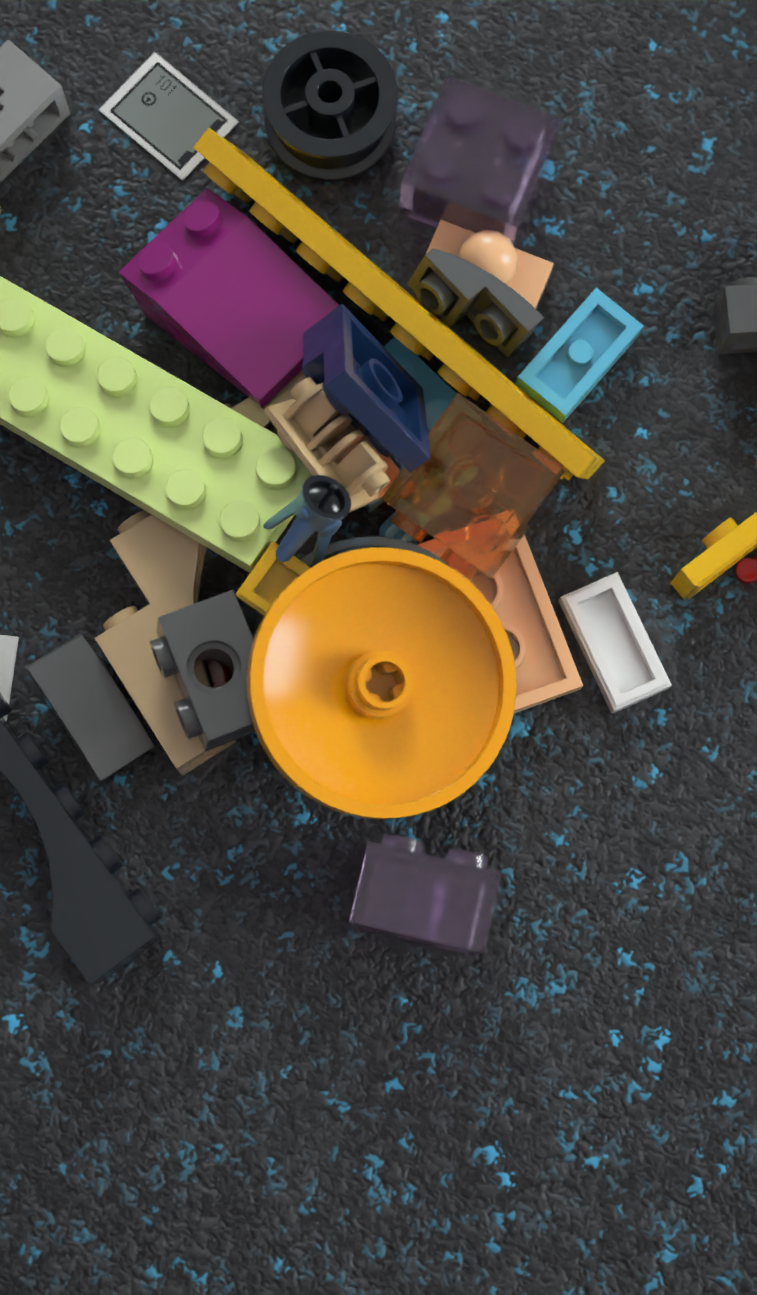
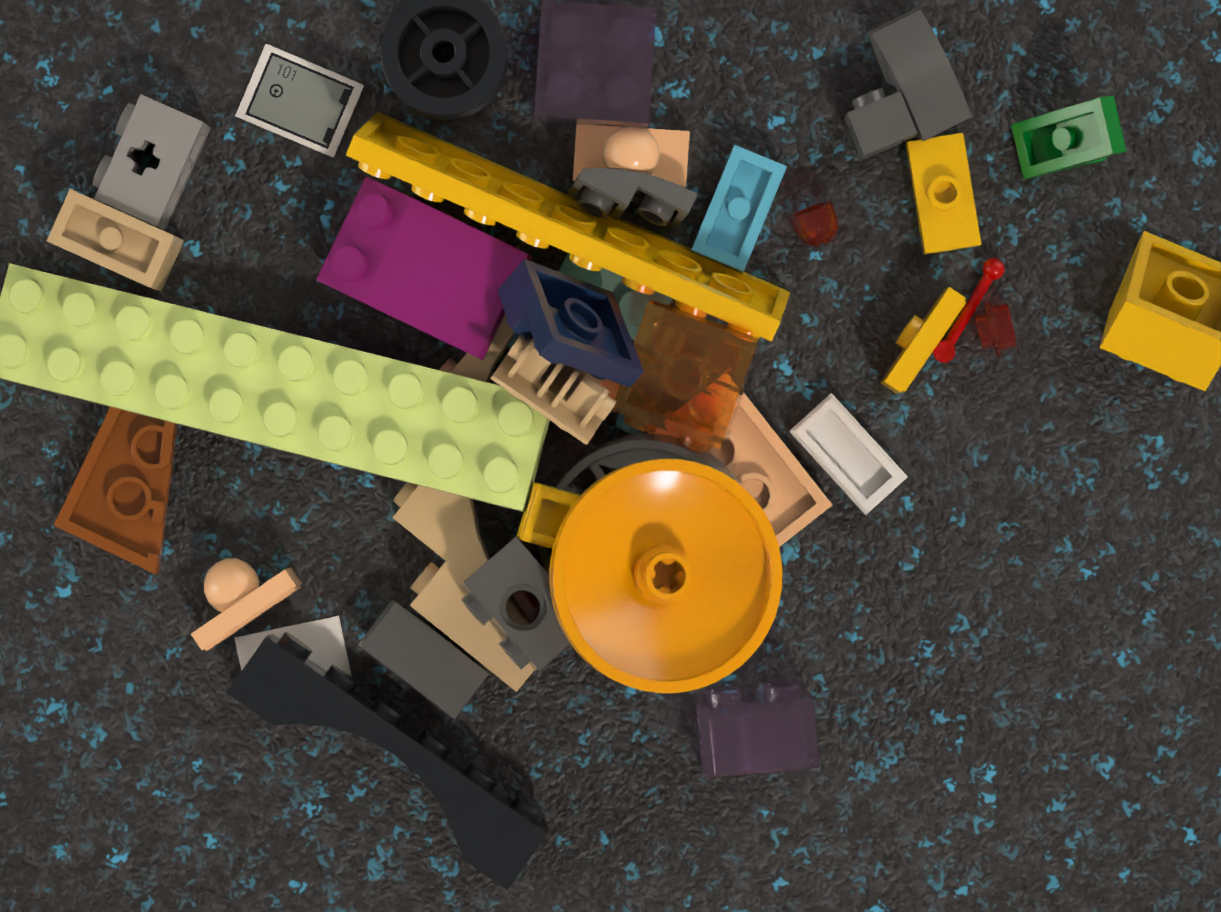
camera: 15 degrees left, 10 degrees up
(318, 508) = (566, 451): flat silver piece -> none
(654, 396) = (816, 224): none -> clear red hinge

